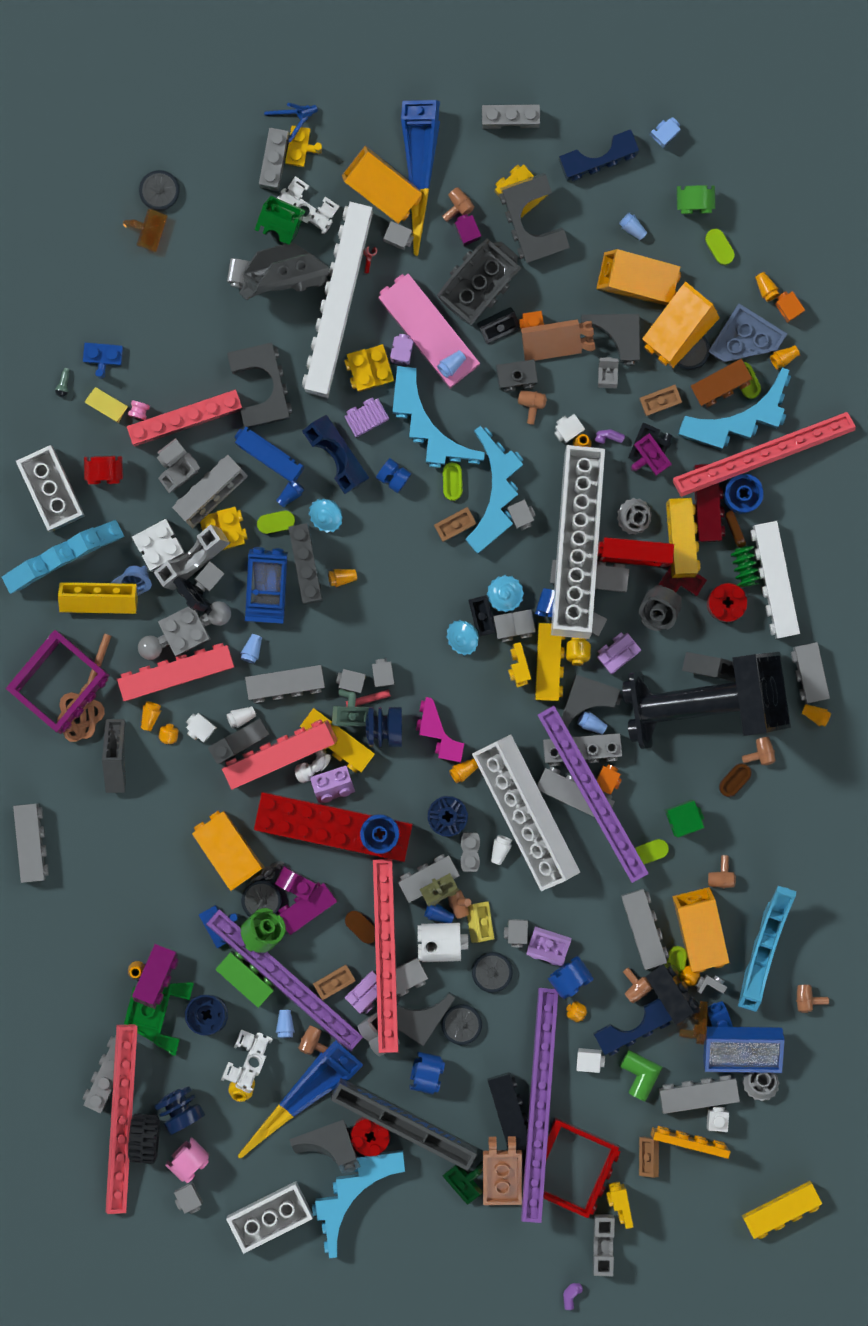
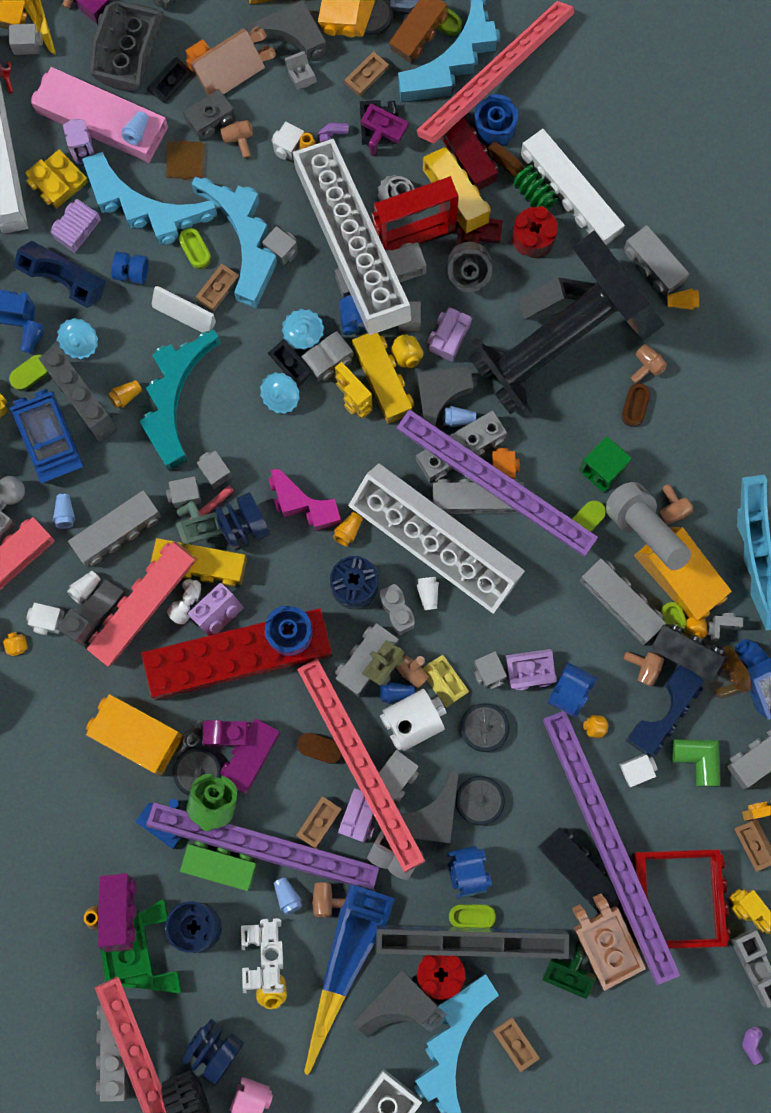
camera: 20 degrees left, 10 degrees down
(390, 574) = (165, 393): none -> teal arch
(400, 1211) = (516, 1044): none -> medium nougat plate
(414, 1105) = (472, 916): none -> lime tile
(418, 530) = (182, 310): none -> white slope
(479, 401) = (184, 160): none -> clear orange piece
(688, 864) = (635, 510): none -> light grey piece

